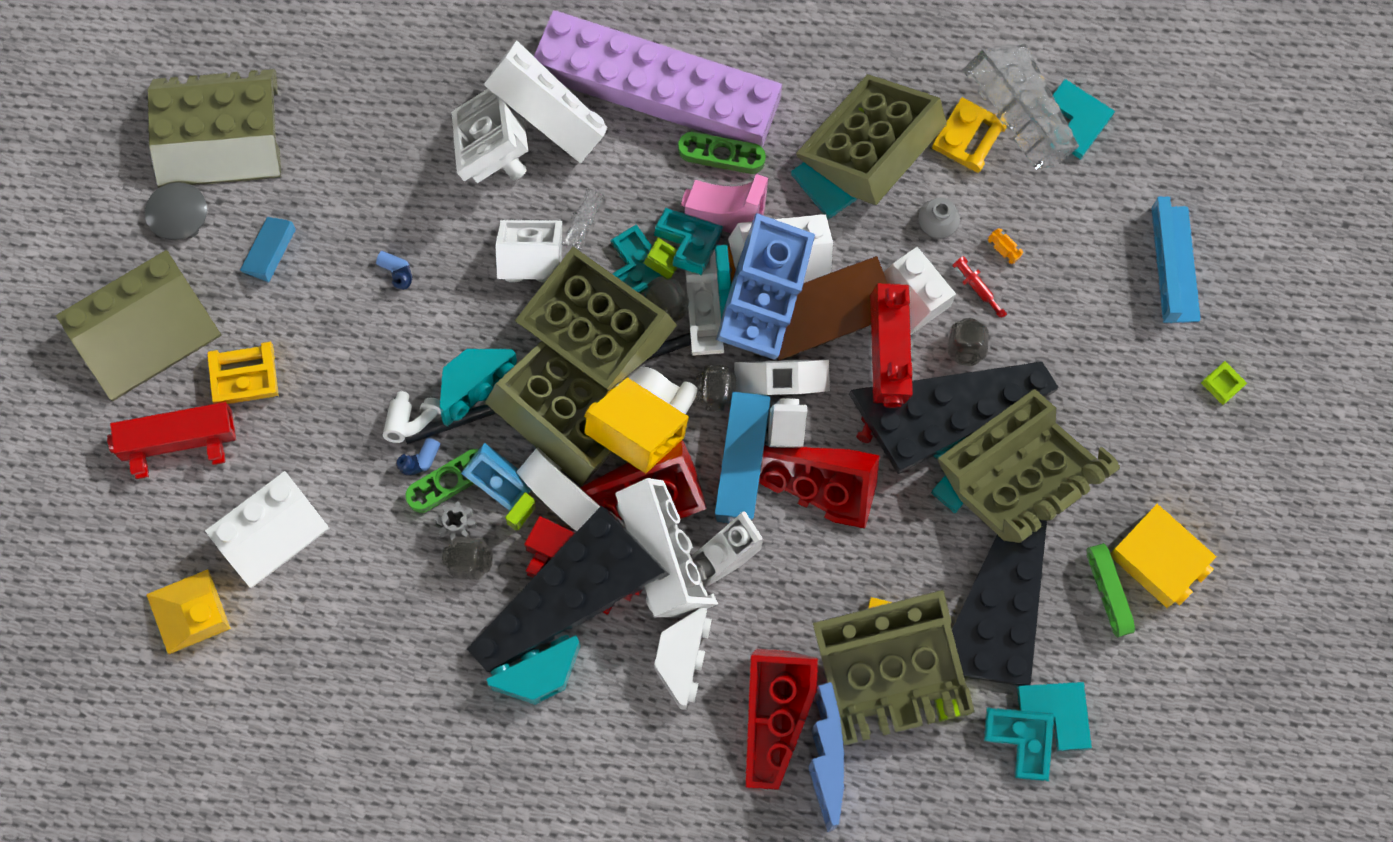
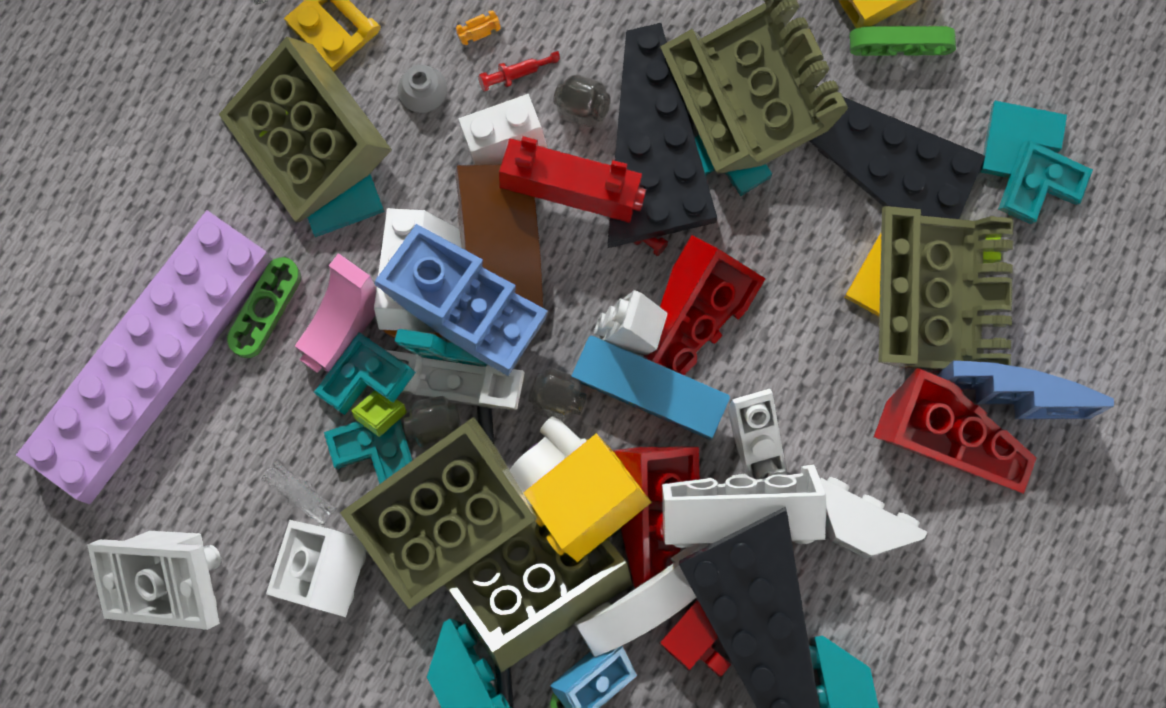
camera: 70 degrees left, 5 degrees up
(521, 512) = (644, 663): lime tile -> none
(545, 102) = (135, 498): white wedge -> none
(782, 377) = (569, 317): white slope -> none

